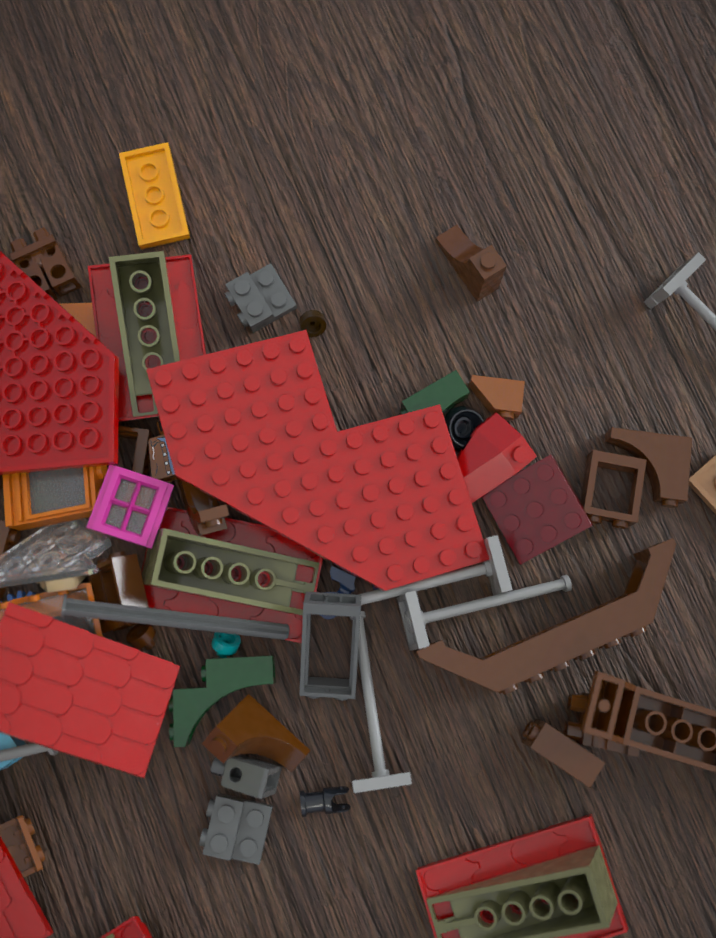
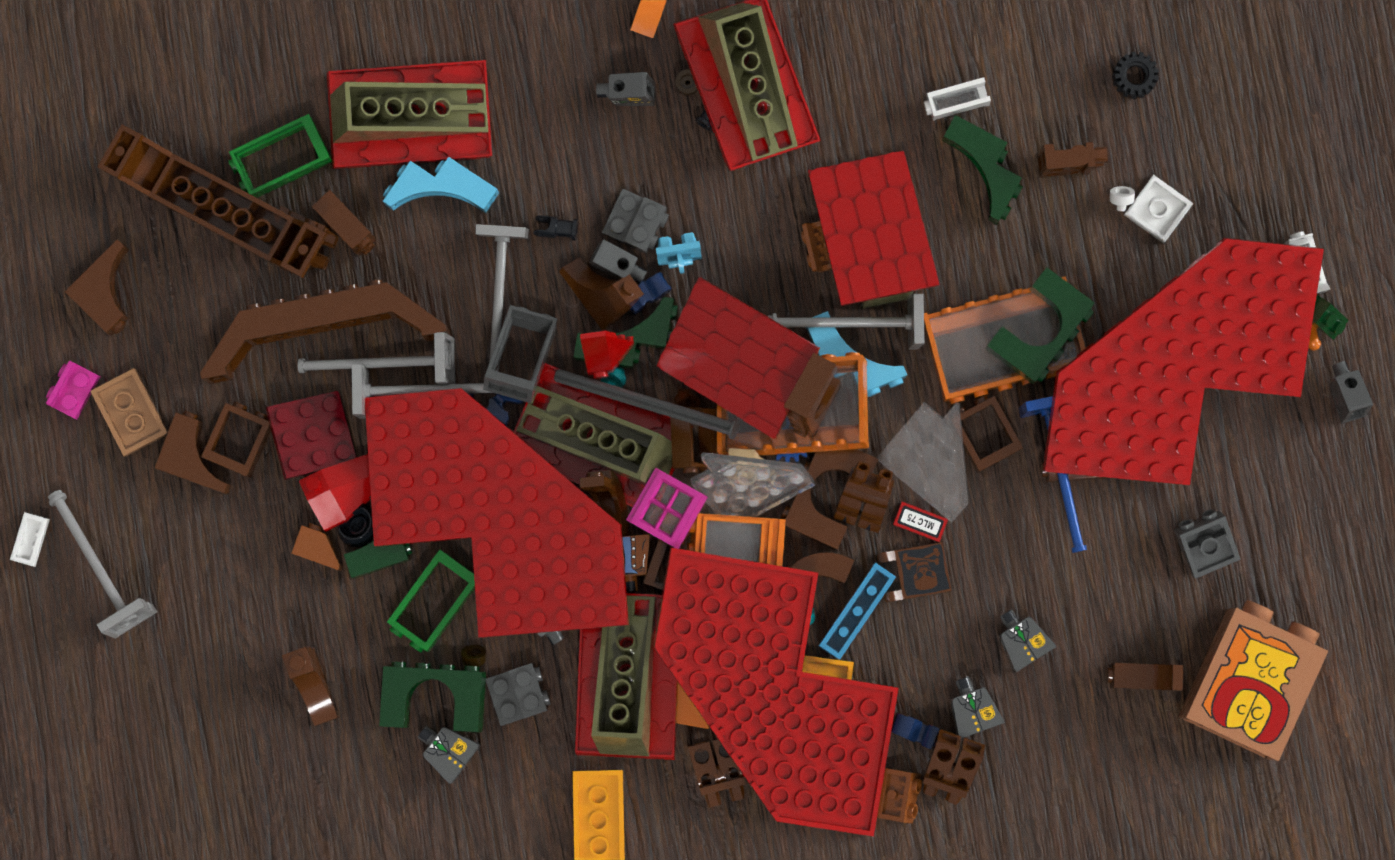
camera: 165 degrees left, 5 degrees up
(178, 799) = (679, 254): none -> medium azure hips
(198, 755) = (653, 289): none -> dark blue leg
(233, 662) = (604, 351): none -> red wedge
(315, 292) = (400, 683): none -> dark green arch
(316, 227) = (448, 751): none -> dark grey torso
(348, 405) = (399, 630): none -> green window
(454, 829) = (450, 181): none -> medium azure arch
(679, 827) = (305, 122): none -> green window

